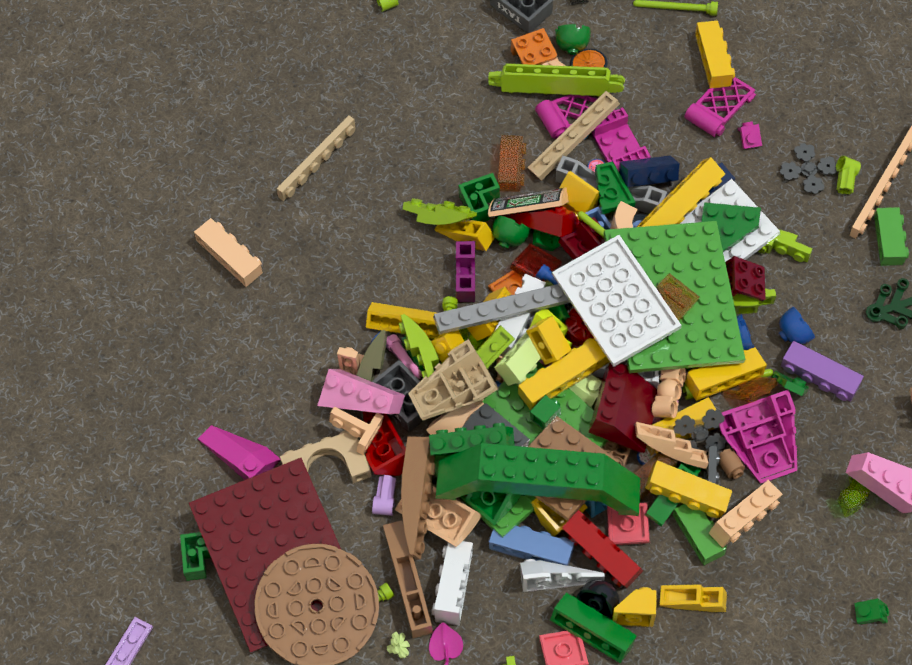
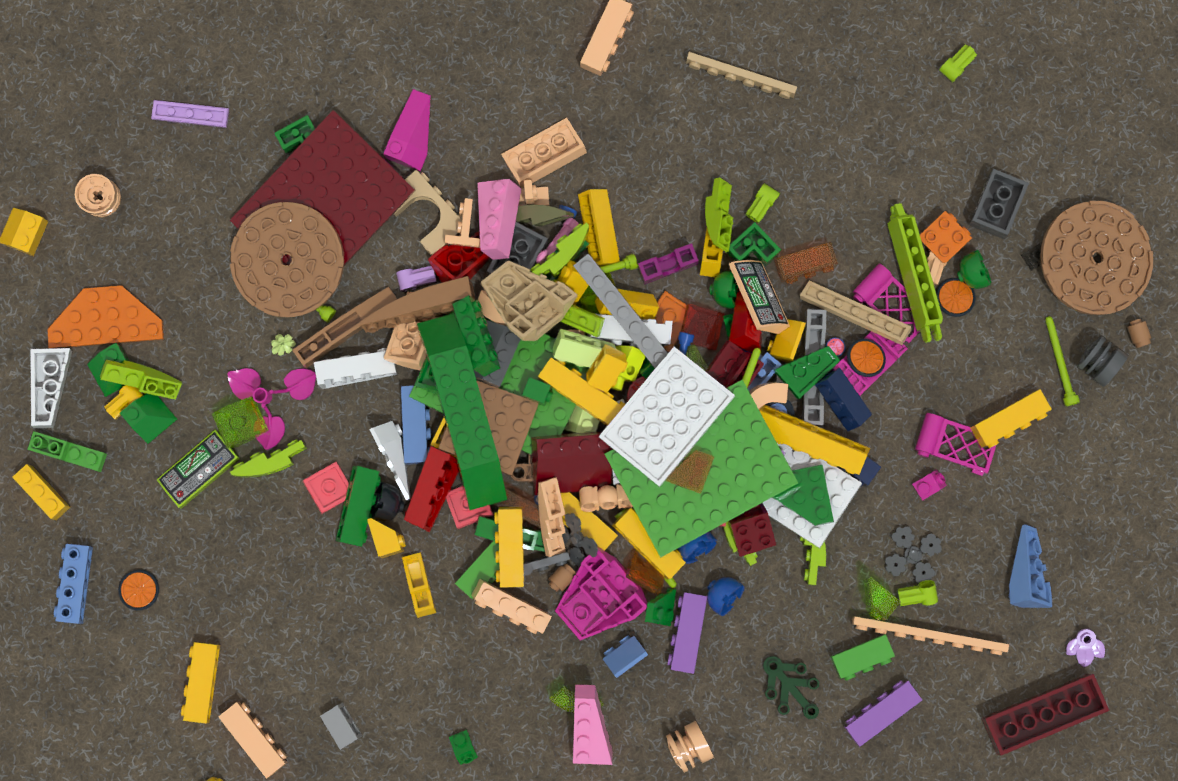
camera: 70 degrees right, 20 degrees up
(312, 342) = (544, 153): none -> light nougat slope
(439, 177) = (764, 200): none -> lime piece
(617, 141) = (866, 357): none -> orange wheel
(828, 430) = (624, 656): none -> medium blue slope
(842, 202) = (879, 600): none -> clear neon green slope
(868, 90) = (1027, 579): none -> medium blue wedge

